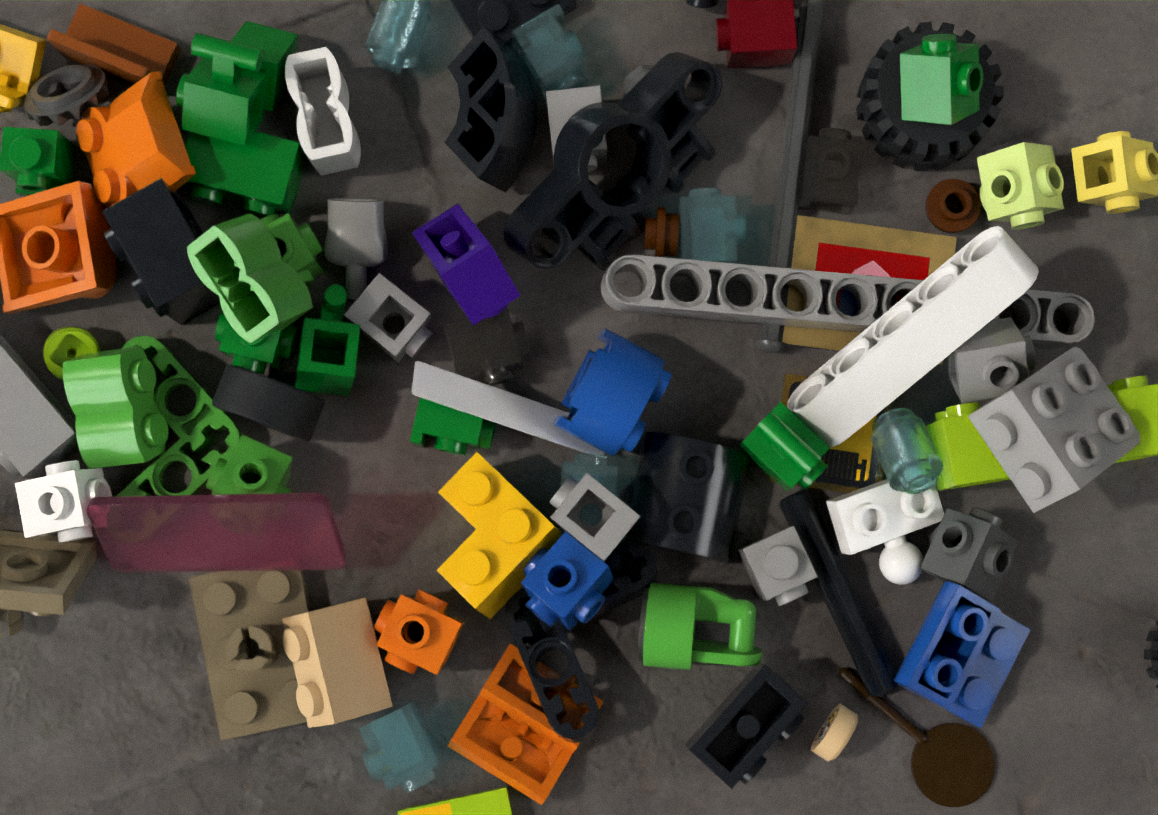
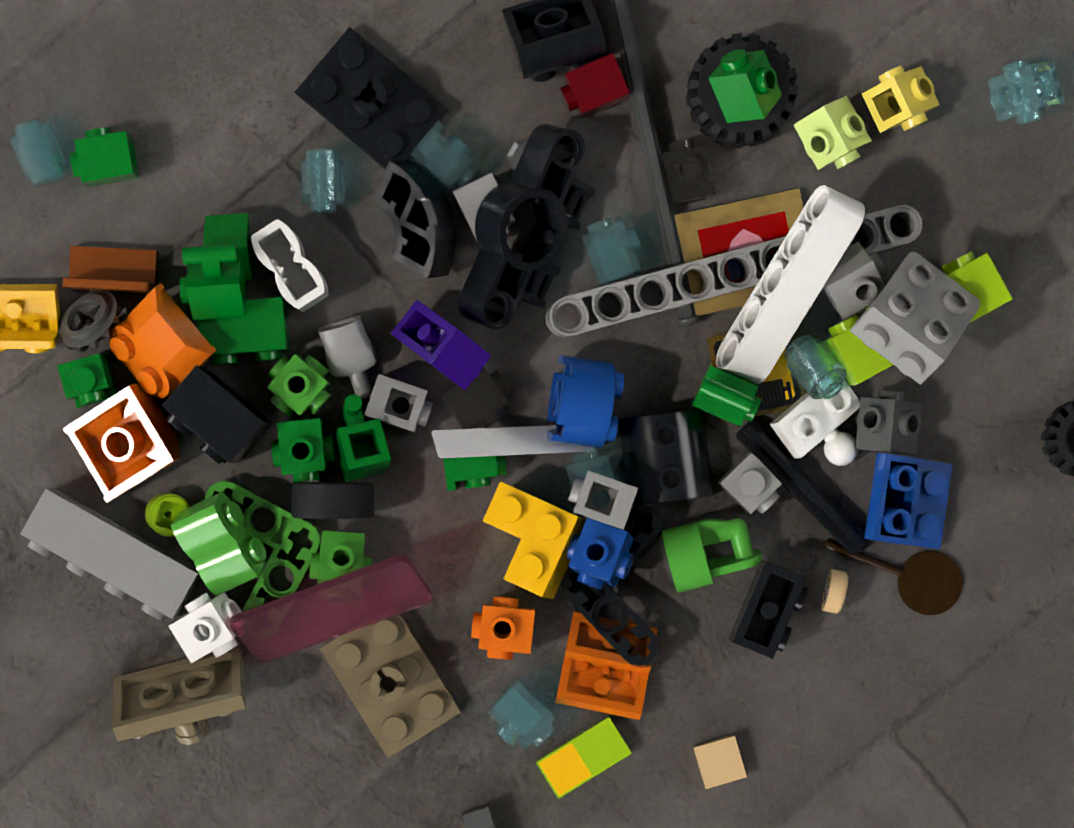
camera: 20 degrees left, 5 degrees up
(246, 271) = (295, 419): bright green brick -> none
(336, 663) = (453, 671): tan brick -> none
(662, 233) = (577, 266): reddish brown plate -> none
(939, 214) = (781, 177): reddish brown plate -> none

